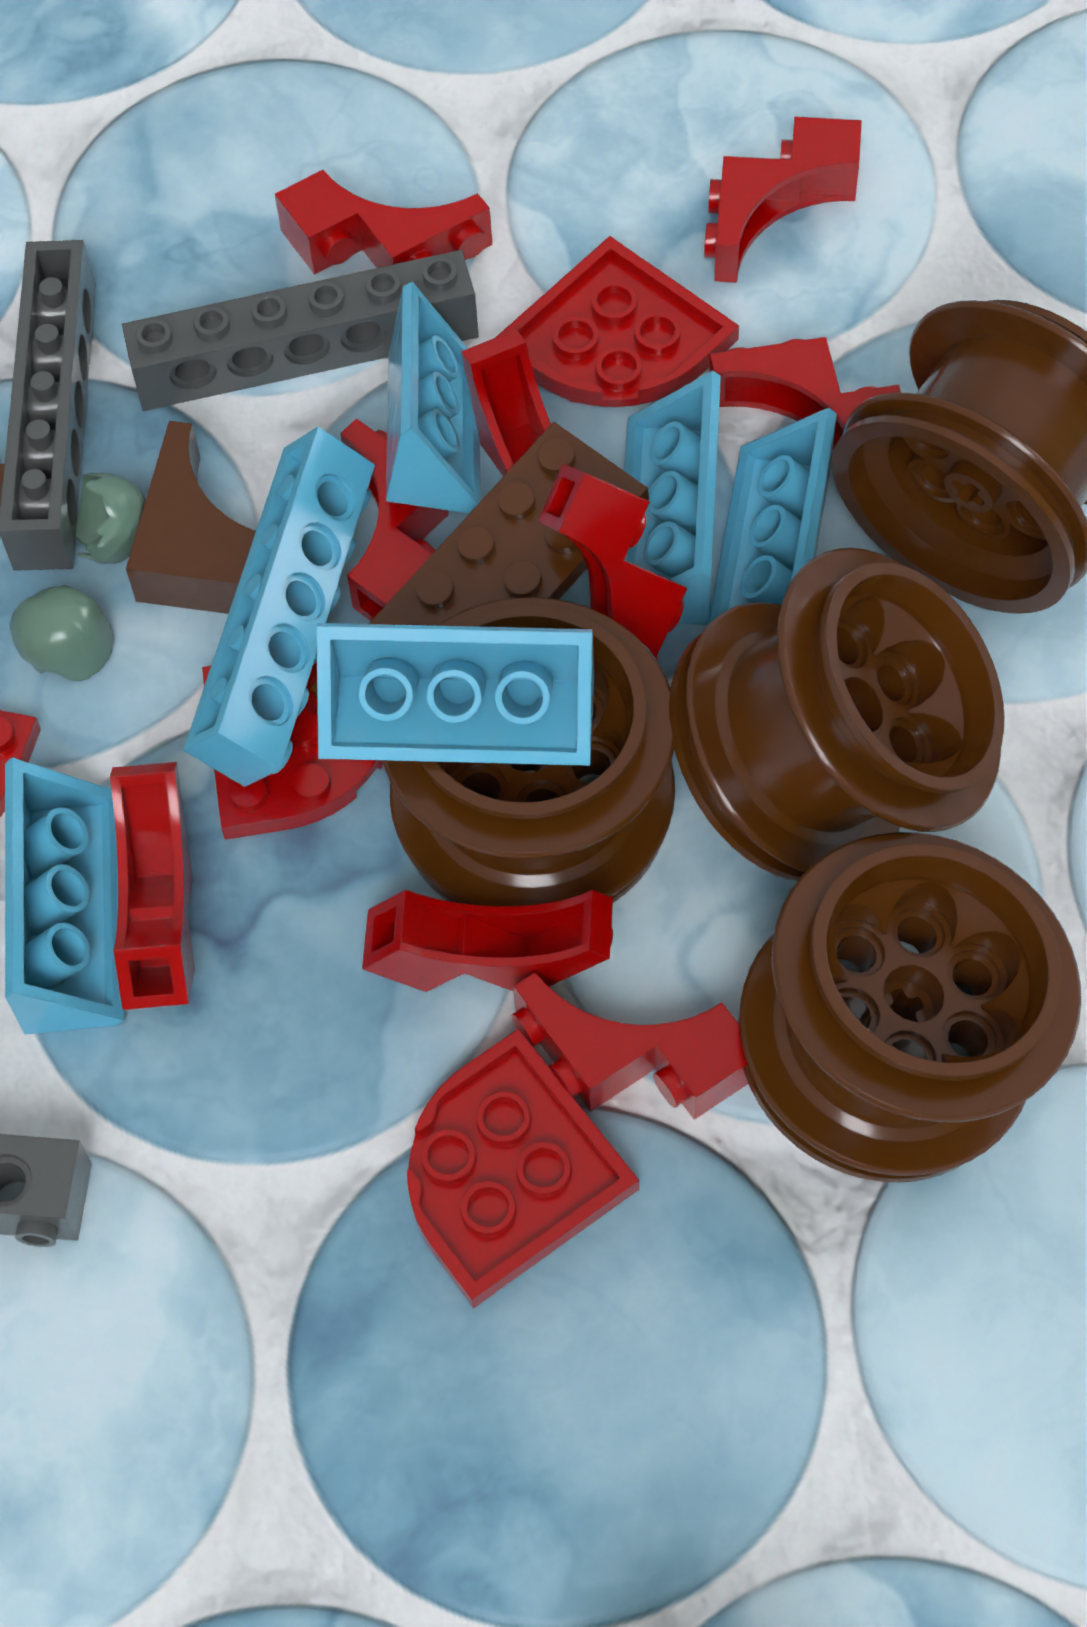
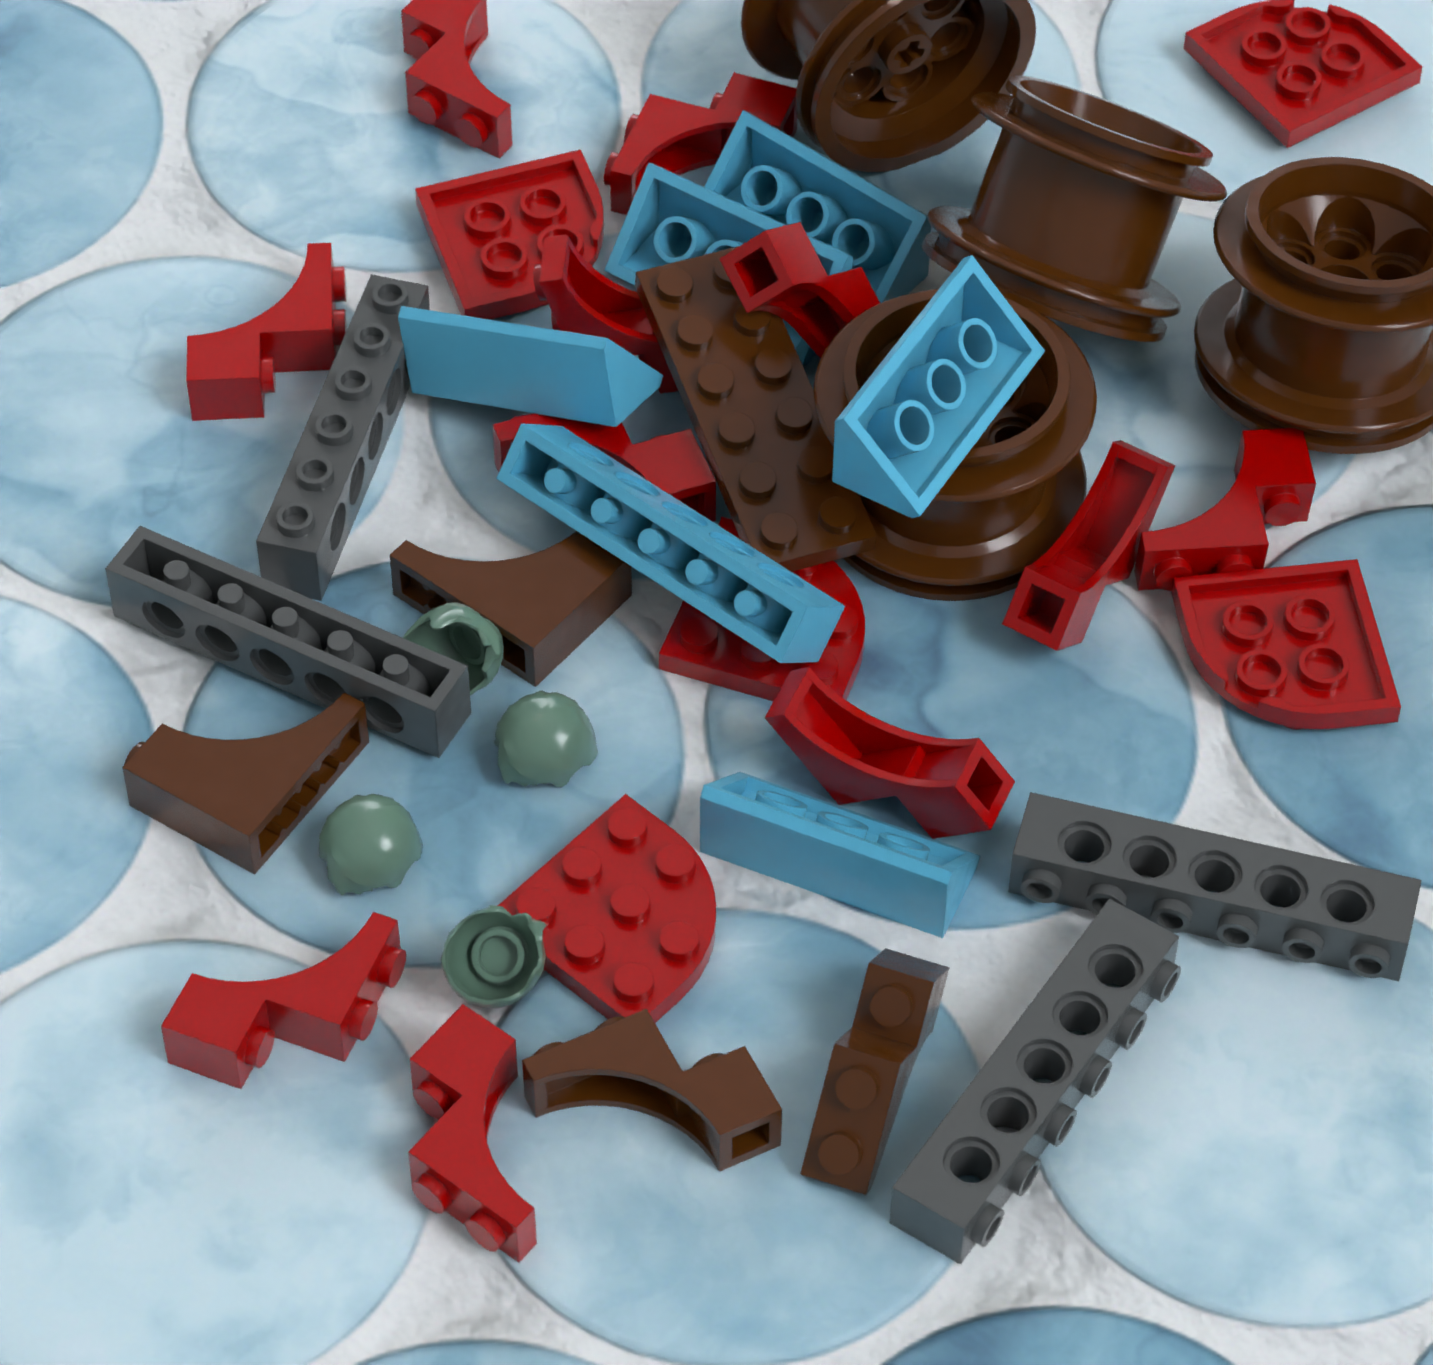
camera: 65 degrees left, 10 degrees down
(211, 1392) = (1243, 872): none -> dark grey brick

